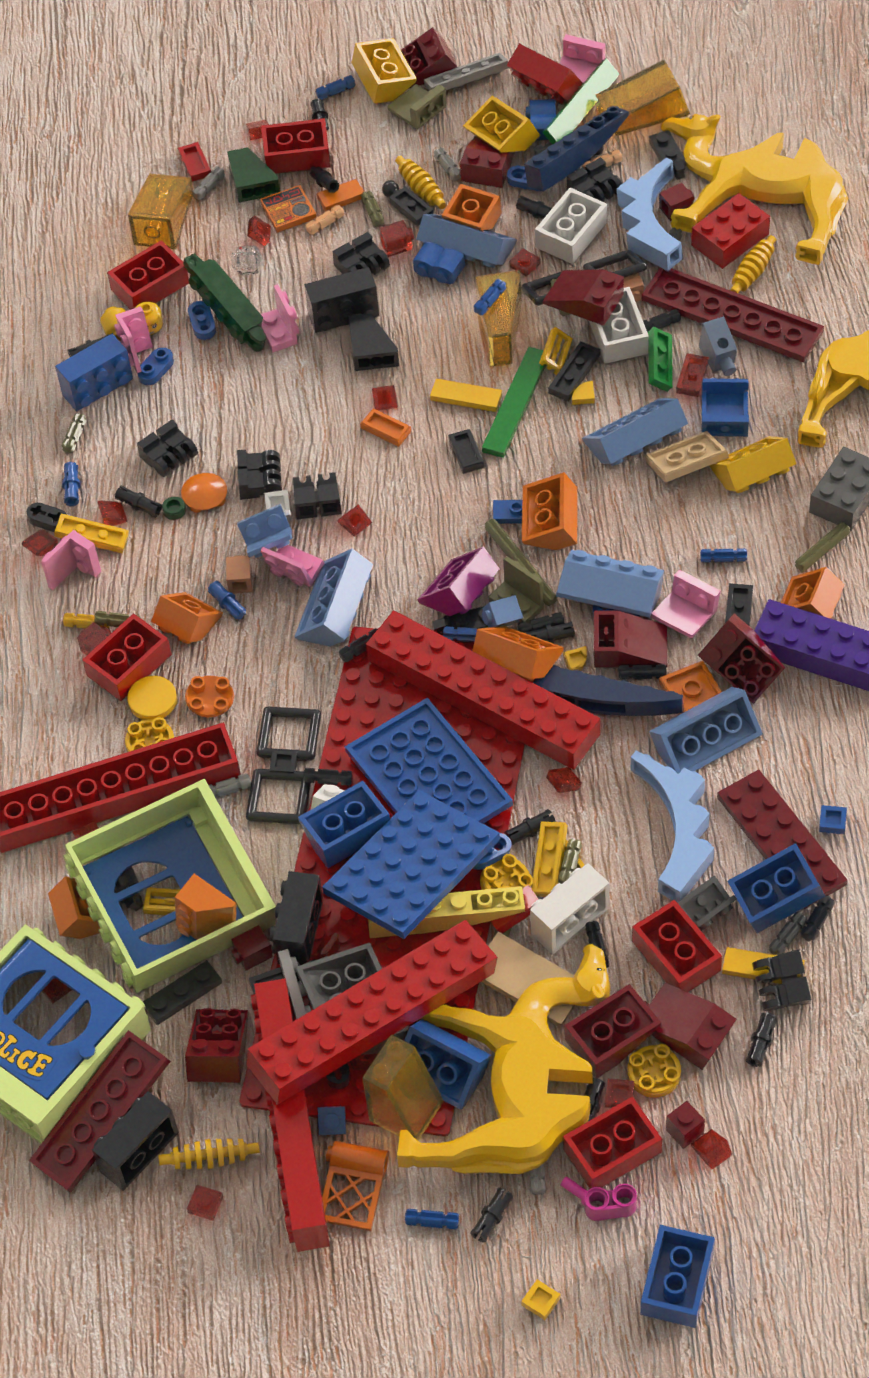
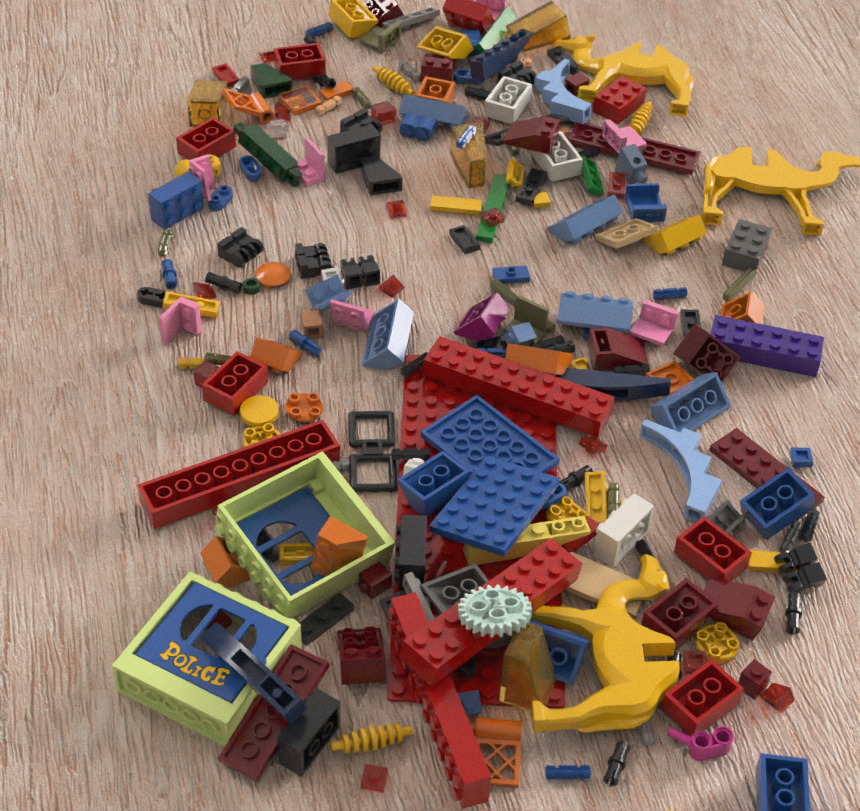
camera: 15 degrees left, 10 degrees down
(40, 543) = (151, 312): clear red slope -> none
(75, 1068) = (254, 673): none -> dark blue slope
(225, 216) = (252, 104): none -> orange piece
(362, 1021) = (494, 611): none -> light aqua gear
(385, 427) = (401, 227): orange tile -> none
(406, 202) = (385, 92): black plate -> none
(508, 420) = (492, 217): none -> clear red plate
(550, 513) = (537, 272): orange slope -> none
(716, 300) = (621, 137): none -> bright pink bracket

